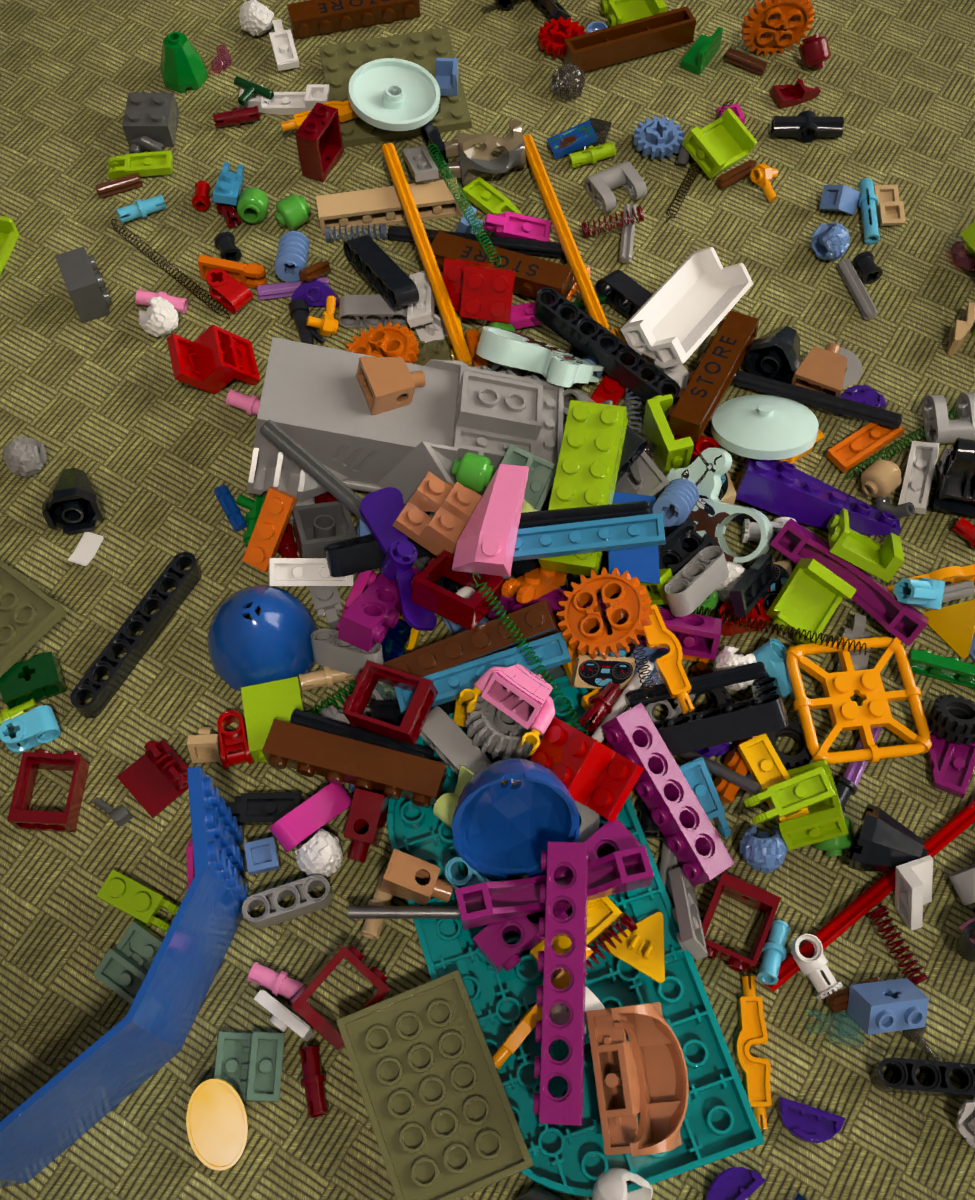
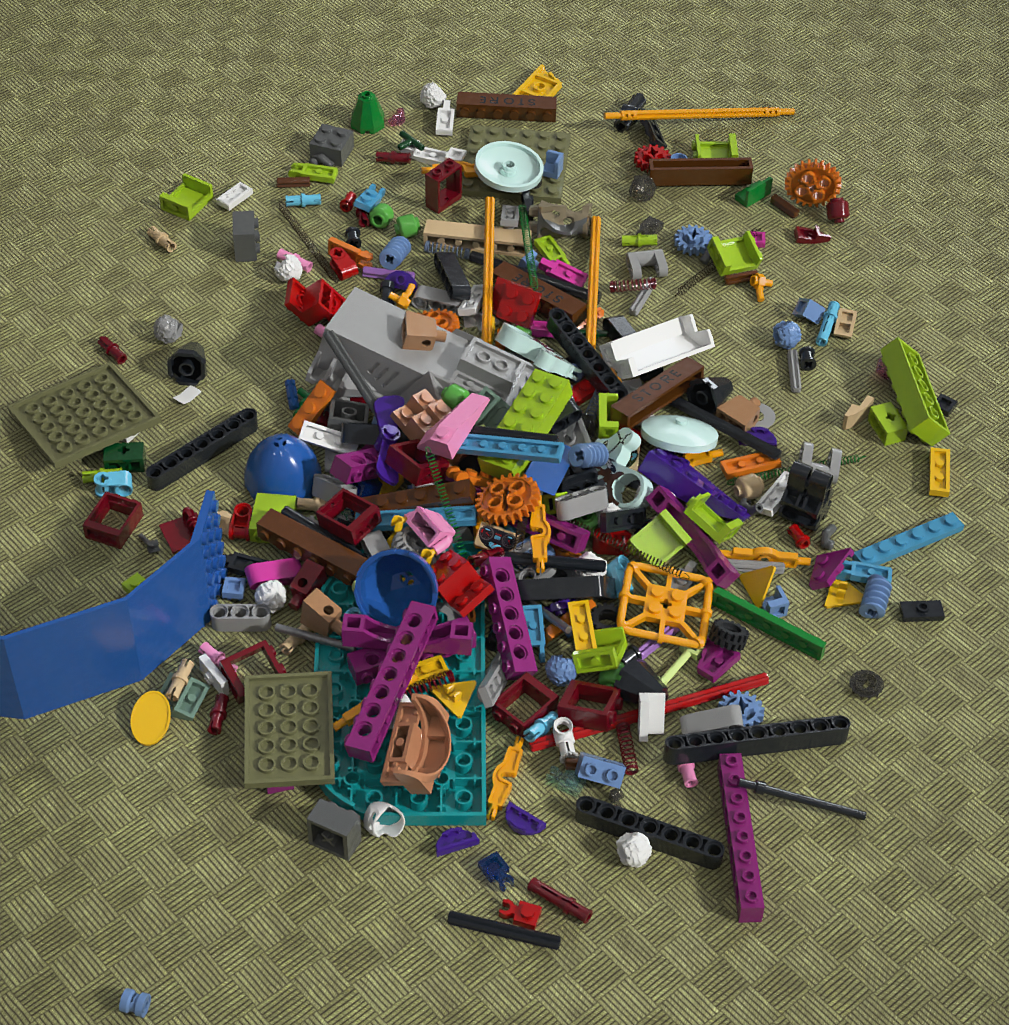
camera: 15 degrees right, 15 degrees down
(47, 226) = (234, 196): none -> white plate
(238, 1044) = (179, 680): none -> tan pin
(314, 271) = (407, 266): reddish brown axle -> none
(572, 139) = (628, 227): blue tile -> none
(792, 795) = (586, 636): lime hinge -> none
(806, 126) = (808, 258): black piece -> none
(828, 922) = (589, 717): none -> dark red window
(903, 783) = (686, 654): none -> yellowish green hinge
(920, 592) = (742, 555): medium azure piece -> none

